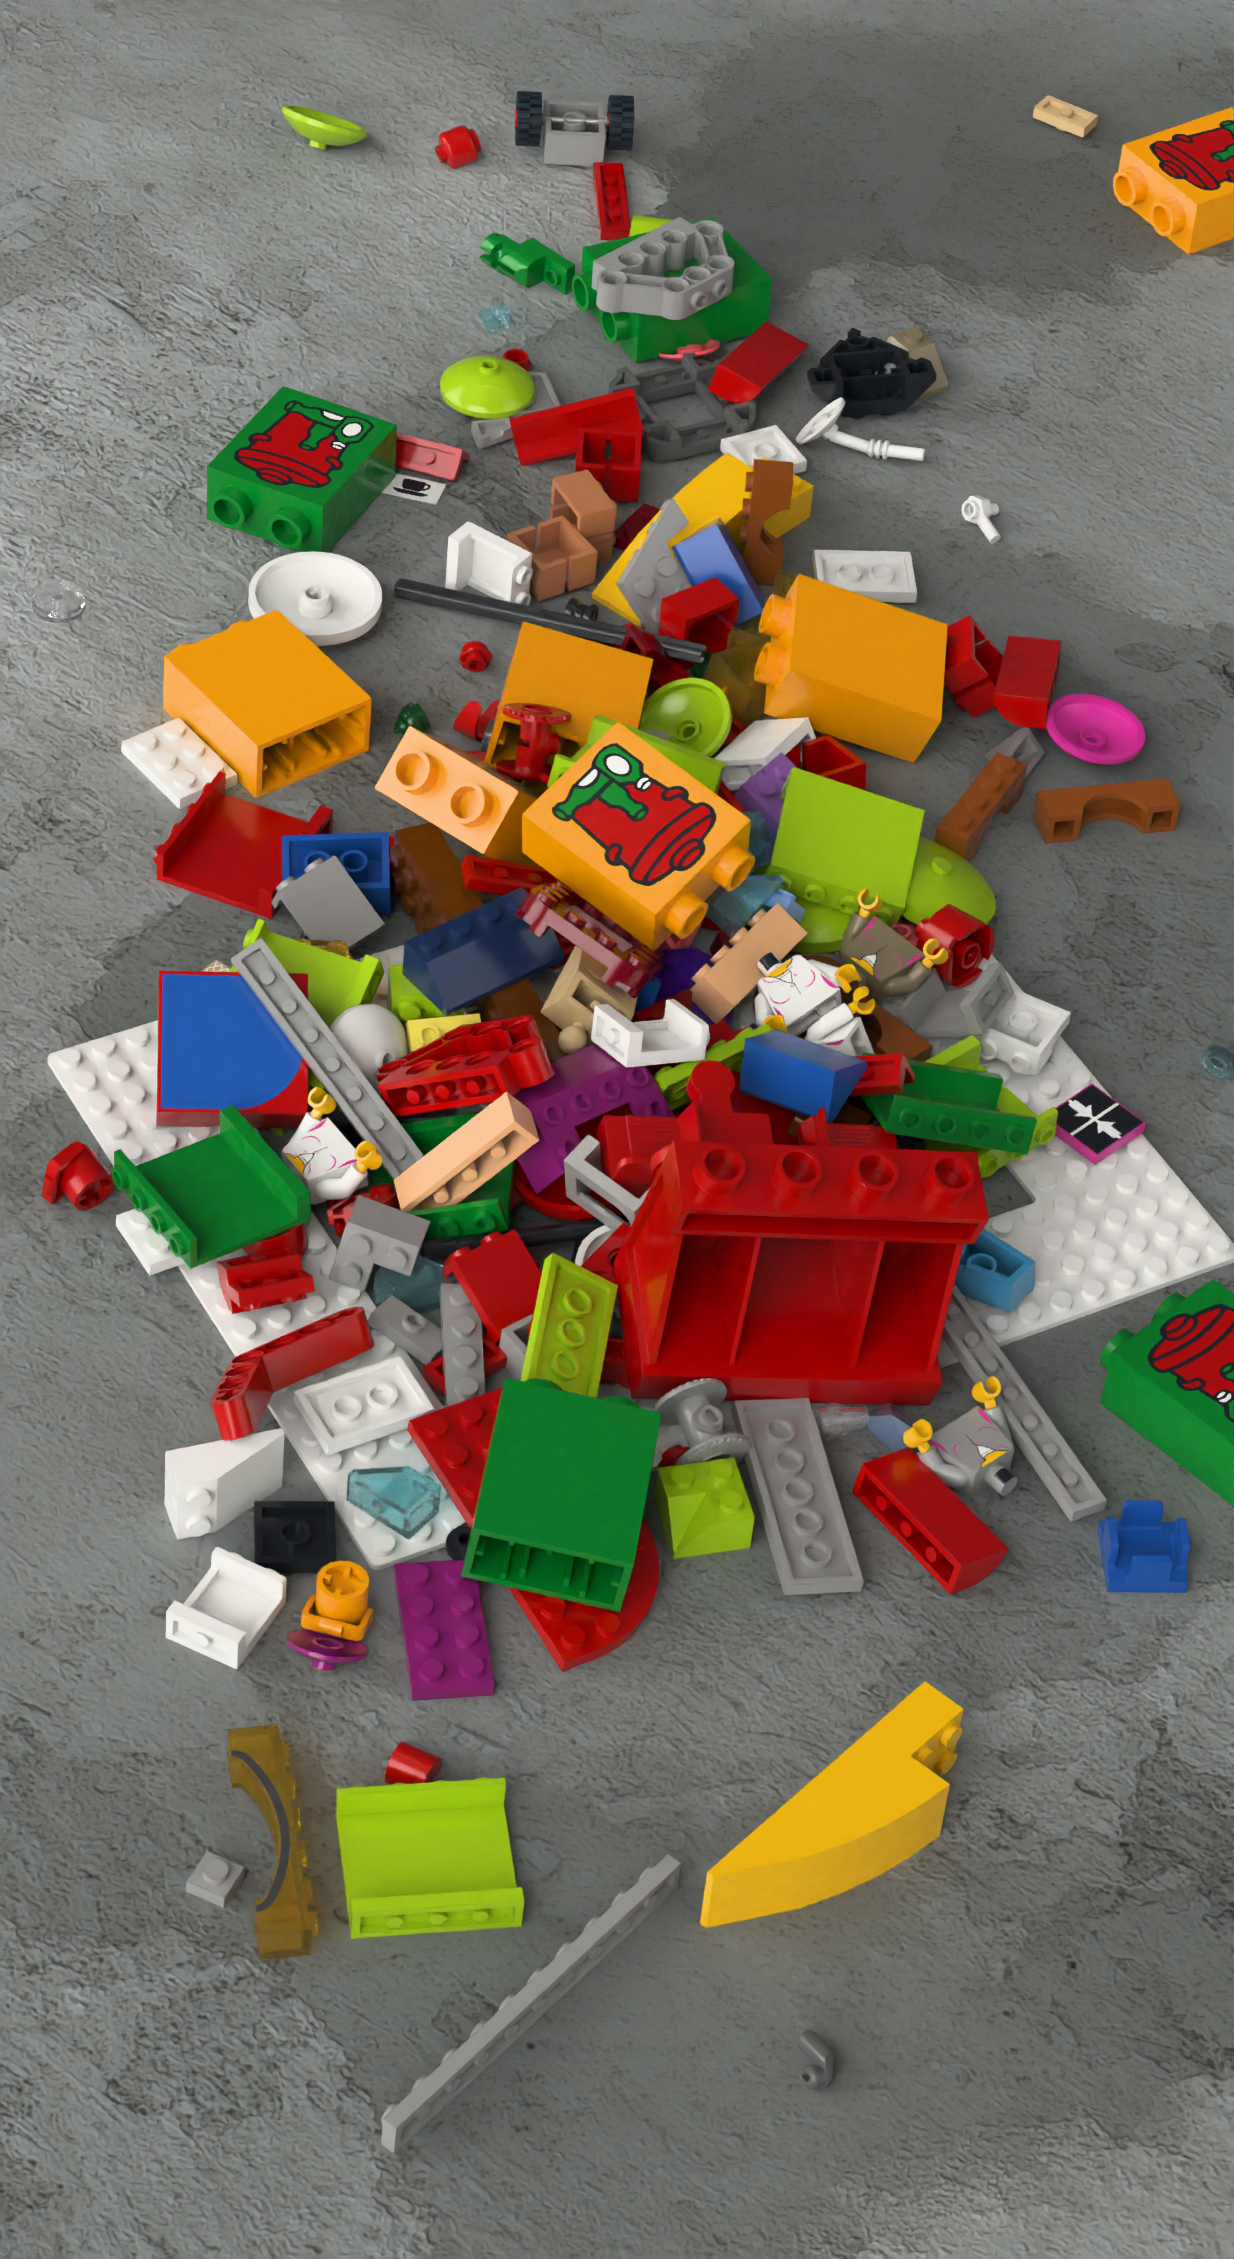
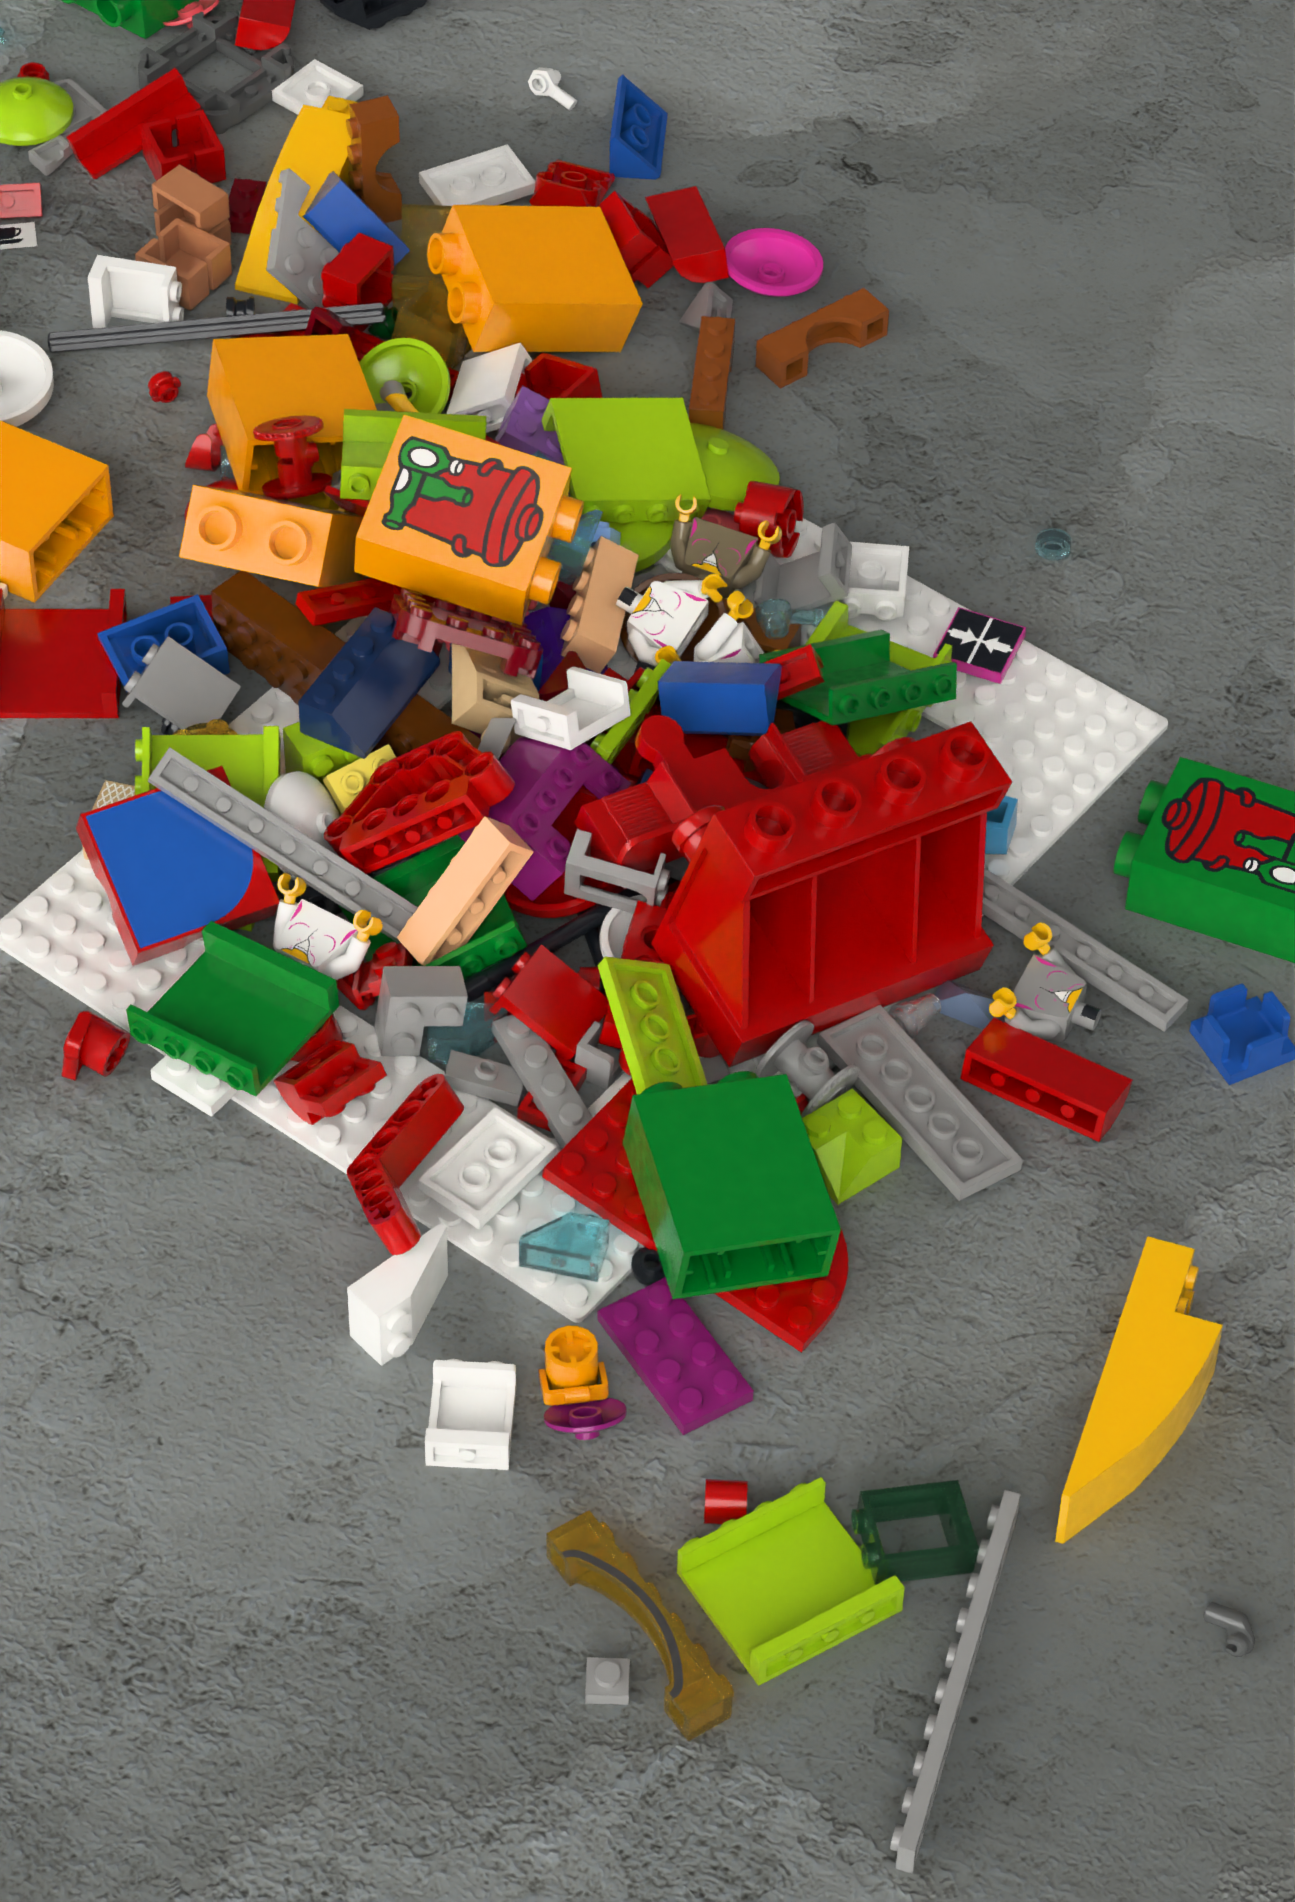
camera: 20 degrees left, 5 degrees up
(294, 1535) = (493, 1320): black plate -> none
(413, 717) = (142, 472): dark green plate -> none
(566, 1038) = (496, 735): none -> light grey sticker
(574, 1833) = (914, 1502): none -> clear green window
(671, 728) = (396, 397): none -> arm
(824, 425) = (360, 45): white dish -> none
(908, 1028) = (776, 615): none -> clear light blue bar
(948, 603) = (570, 185): none -> red slope
(1035, 579) = (636, 133): none -> blue slope

